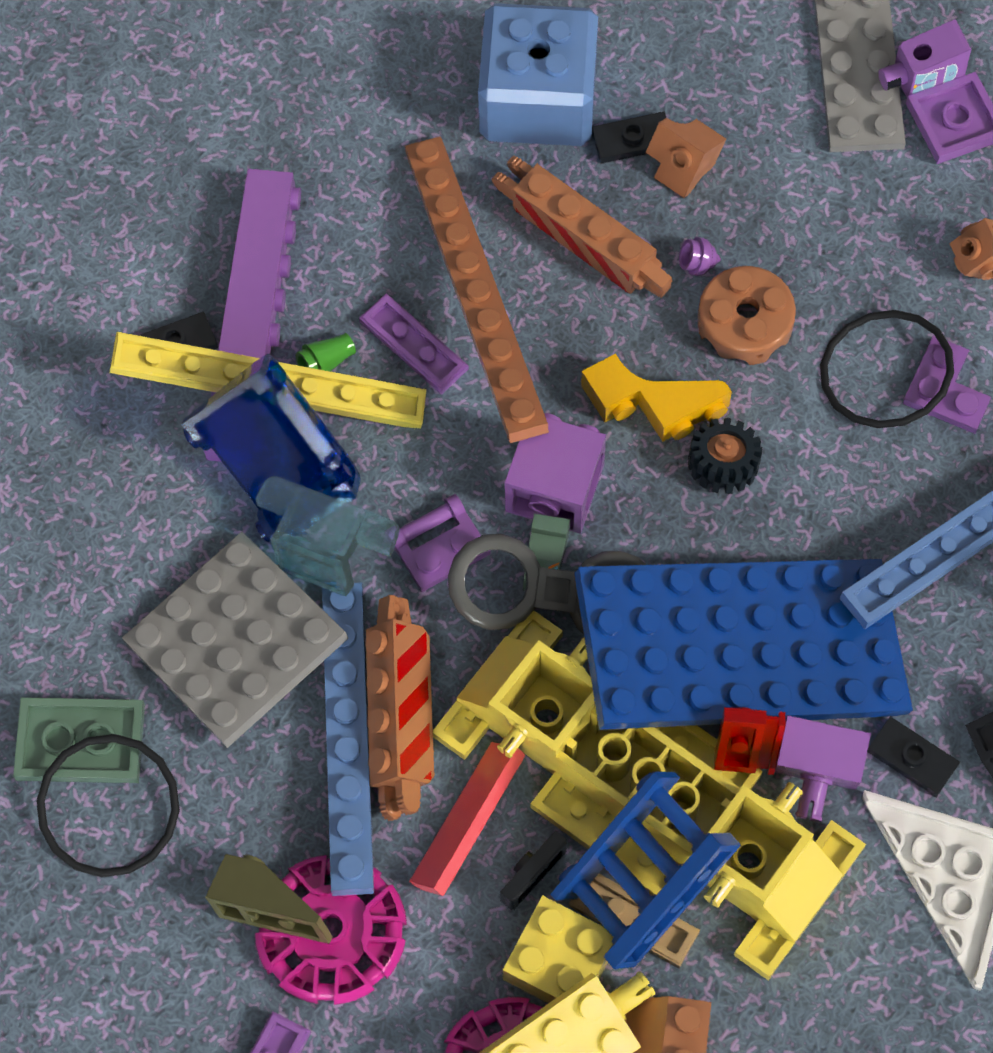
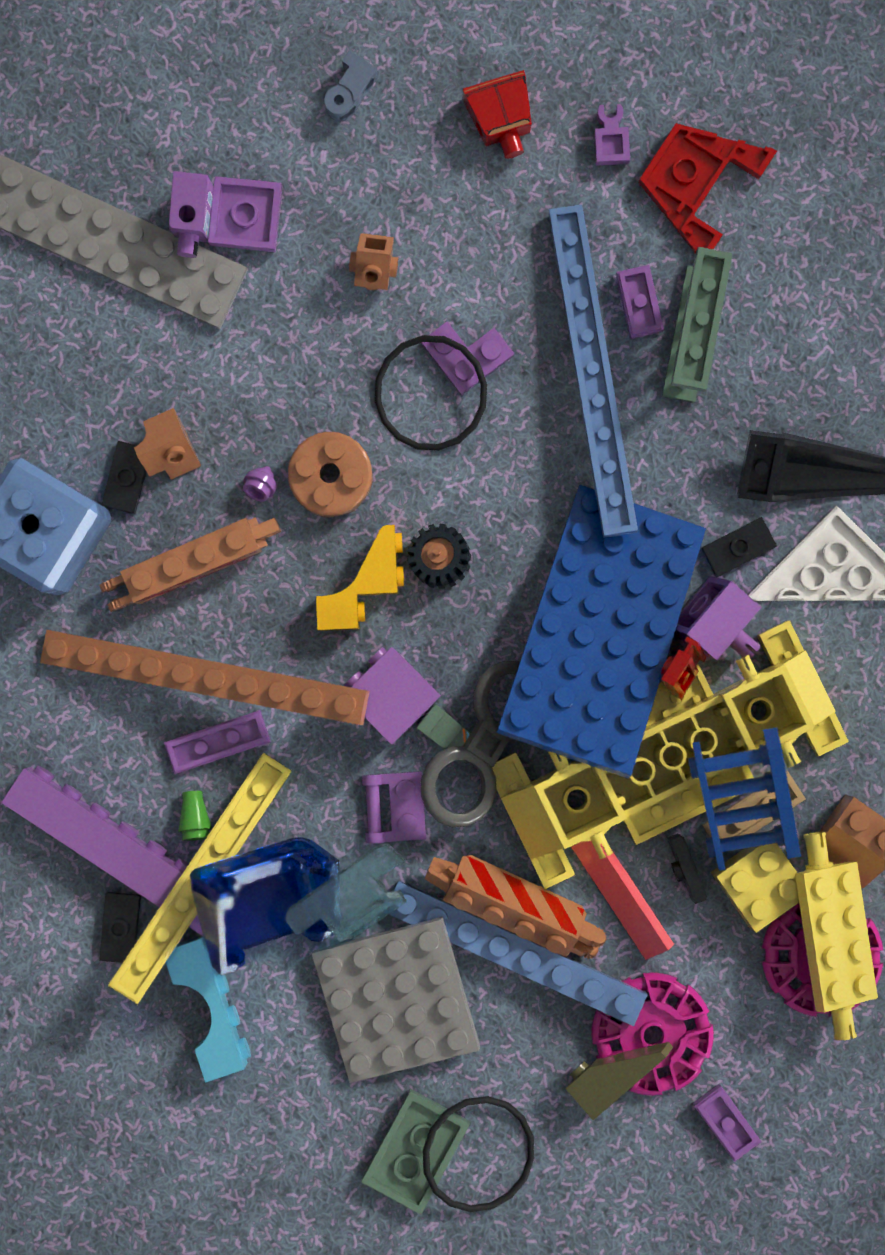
camera: 70 degrees left, 20 degrees up
(100, 491) = (221, 1049): none -> medium azure arch

